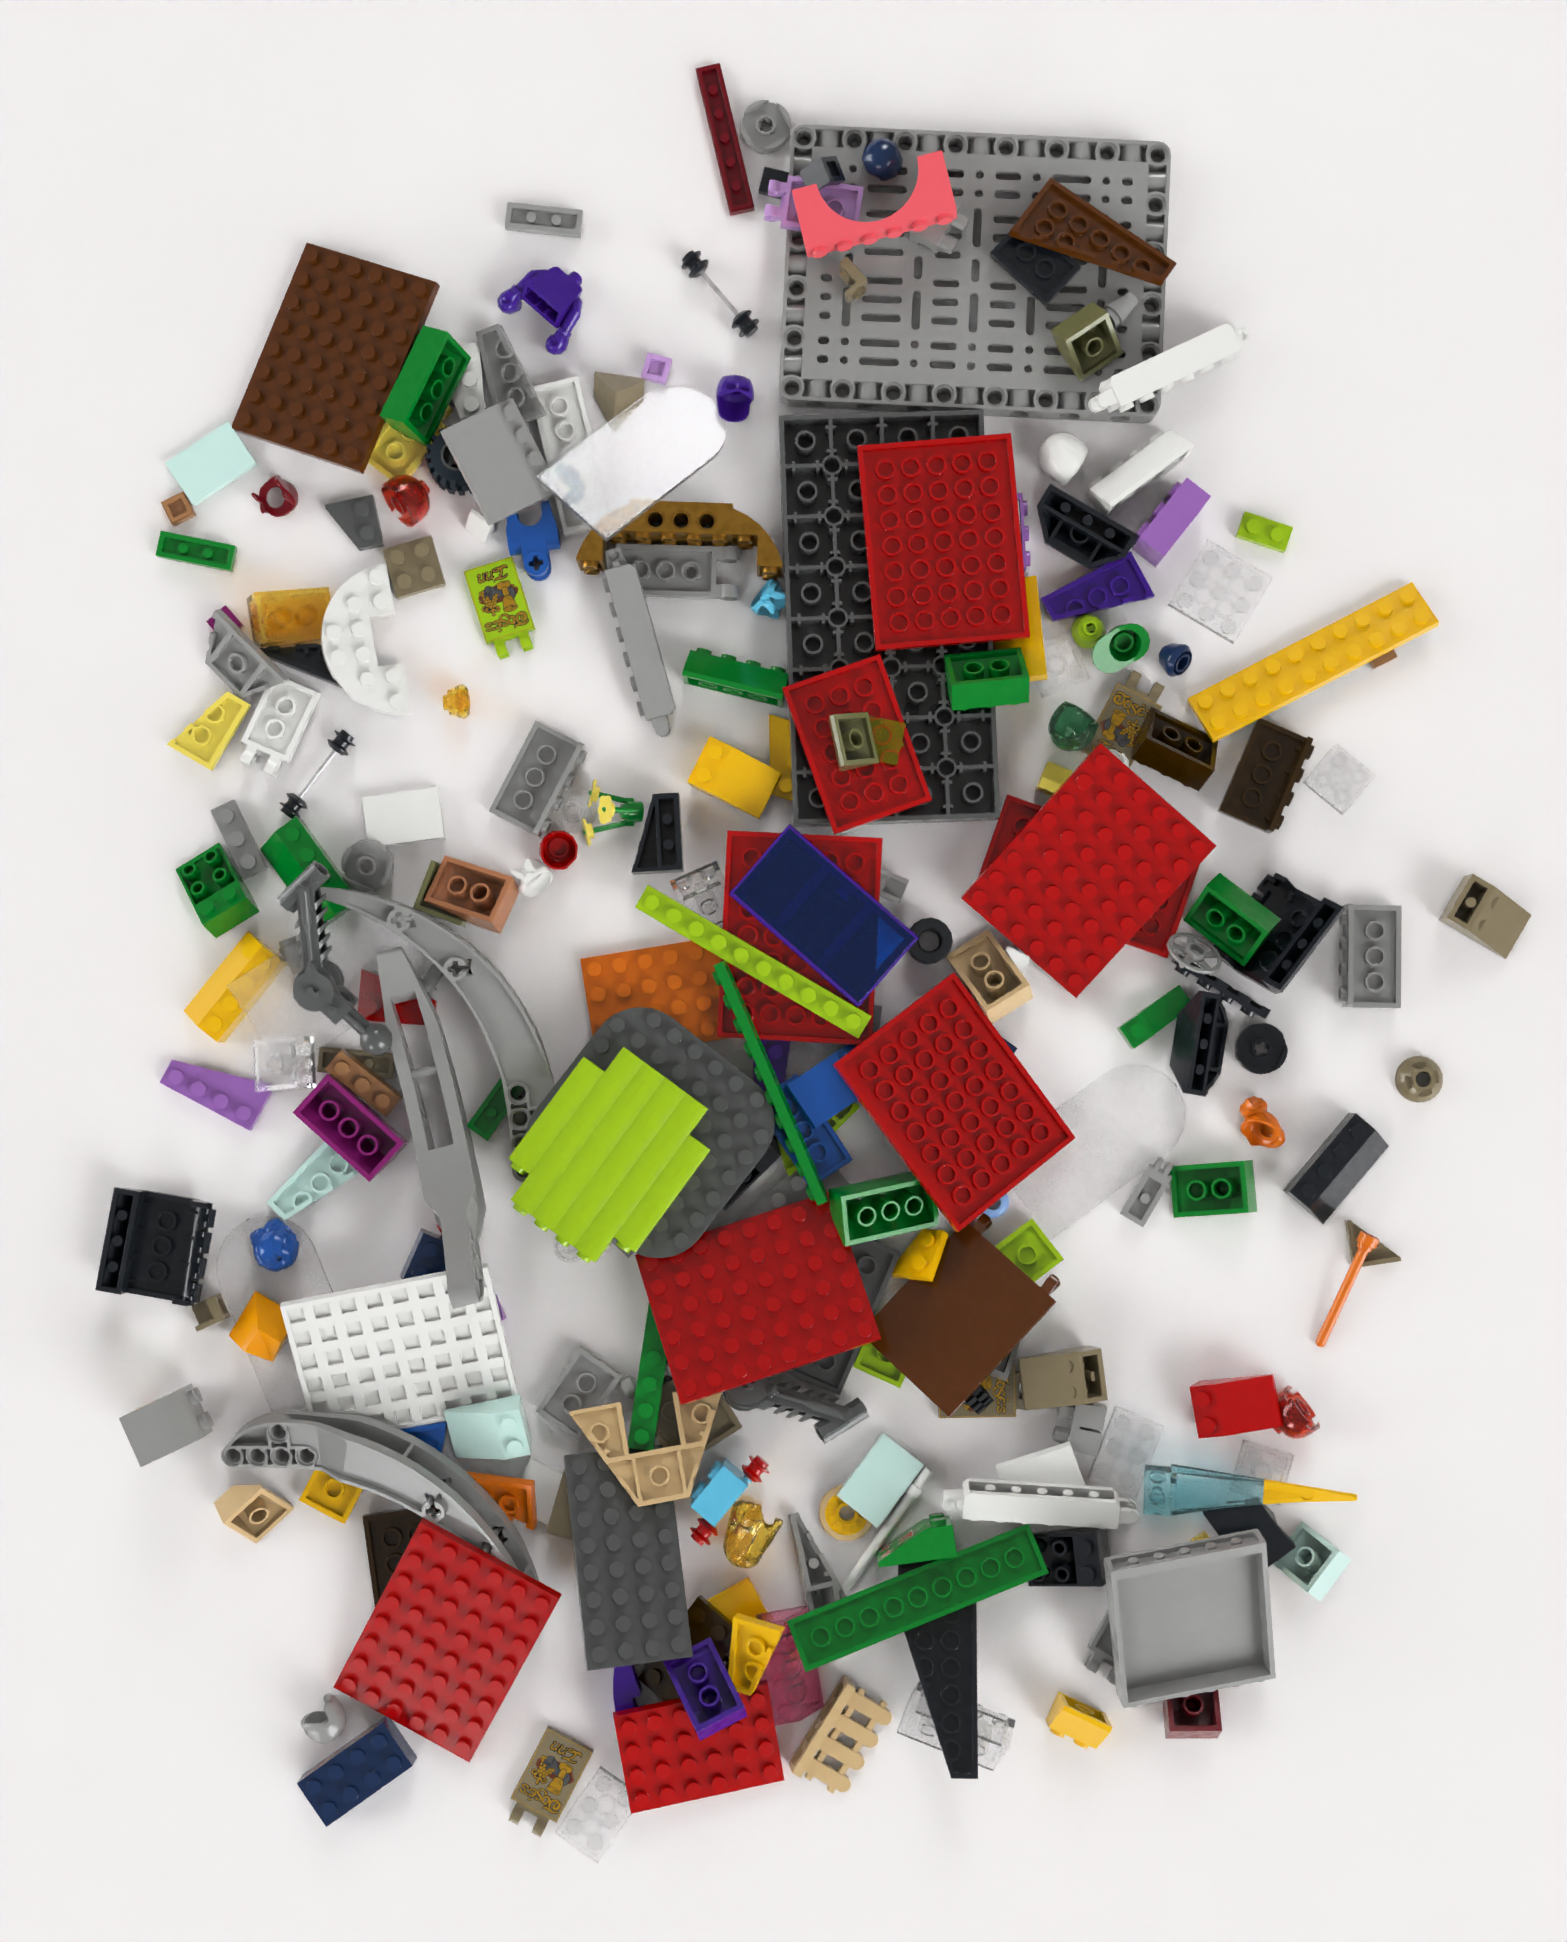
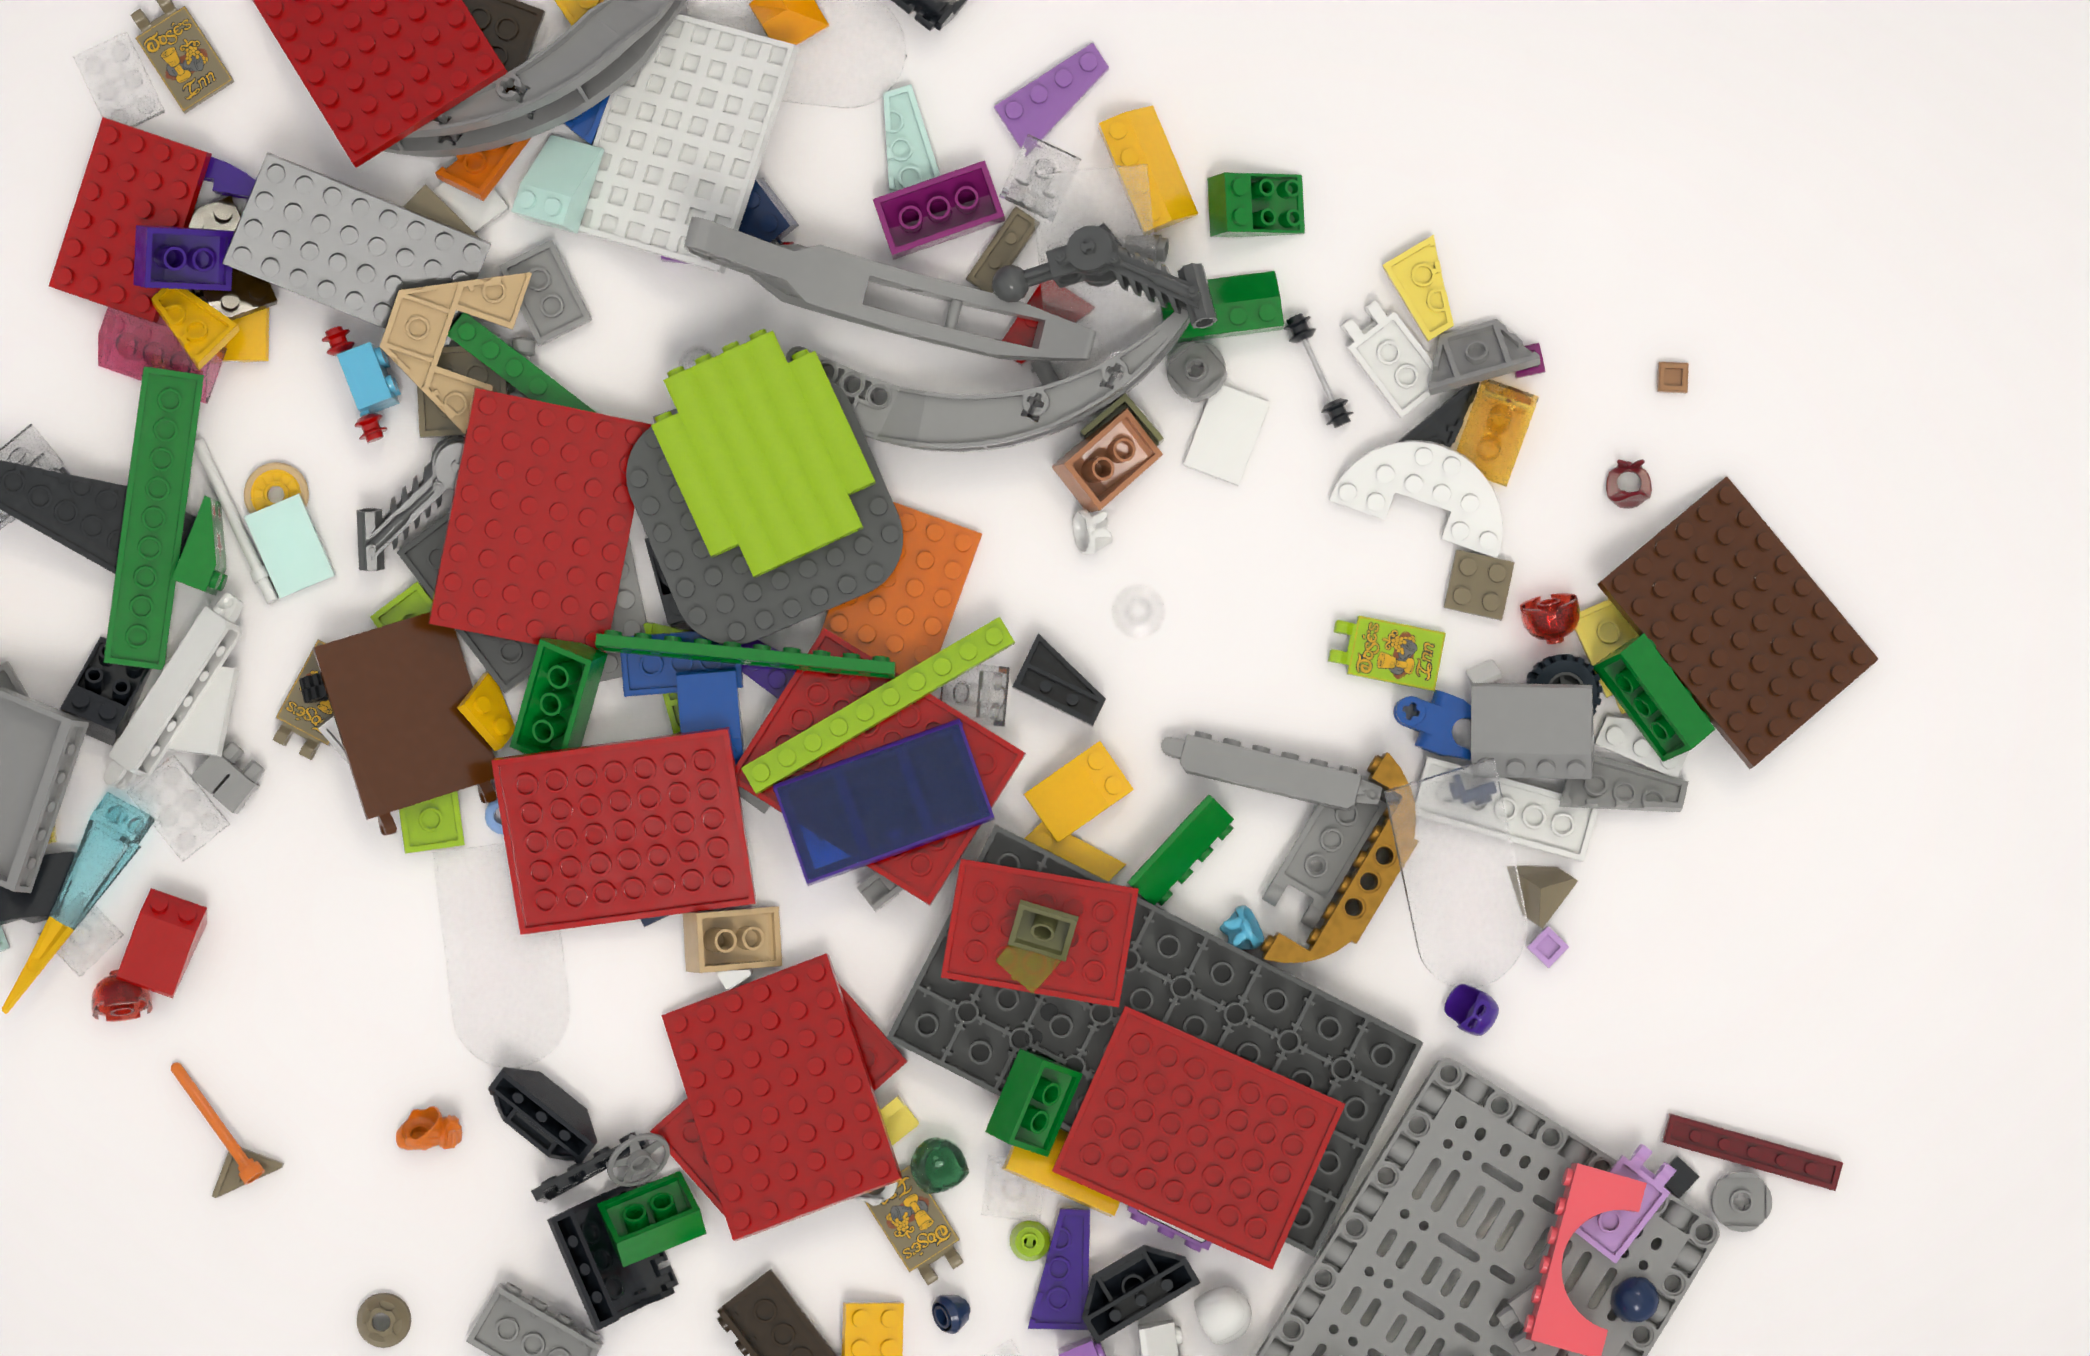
camera: 120 degrees right, 0 degrees up
(196, 551) = (1616, 372): green plate -> none
(211, 463) = (1701, 436): light aqua tile -> none
(239, 839) = (1296, 255): light grey plate -> none
(272, 1242) = (867, 69): blue hair -> none
(359, 521) = (1558, 554): dark grey wing -> none
(364, 1082) = (977, 247): medium nougat plate -> none
(457, 701) = (1313, 553): clear yellow cone -> none
(492, 1111) = (877, 360): green plate -> none
(538, 779) = (1188, 592): light grey bracket -> none
(544, 220) = (1768, 916): light grey plate -> none
(553, 297) = (1678, 880): dark purple torso -> none
(558, 850) = (1104, 572): red hair -> none
(631, 811) = (1104, 667): plant -> none
(697, 268) = (1630, 1047): black axle -> none
(748, 1534) = (310, 384): clear yellow hair -> none
(816, 1575) = (229, 429): light grey wedge -> none
(823, 172) = (1649, 1227): panel -> none
(832, 1716) = (84, 366): tan fence -> none
(852, 275) = (1529, 1197): dark tan bracket -> none
(945, 941) = (796, 915): black tyre -> none
(1062, 1378) = (287, 785): dark tan slope -> none
(1120, 647) = (992, 1261): green piece -> none
(1147, 1192) = (424, 977): light grey hinge -> none
(1153, 1017) = (597, 1083): green slope -> none
(1175, 749) = (857, 1259): dark brown slope -> none
(1213, 1189) = (390, 1046): green slope -> none
(1274, 1043) = (488, 1170): black plate -> none
(1336, 1167) = (341, 1184): black slope -> none

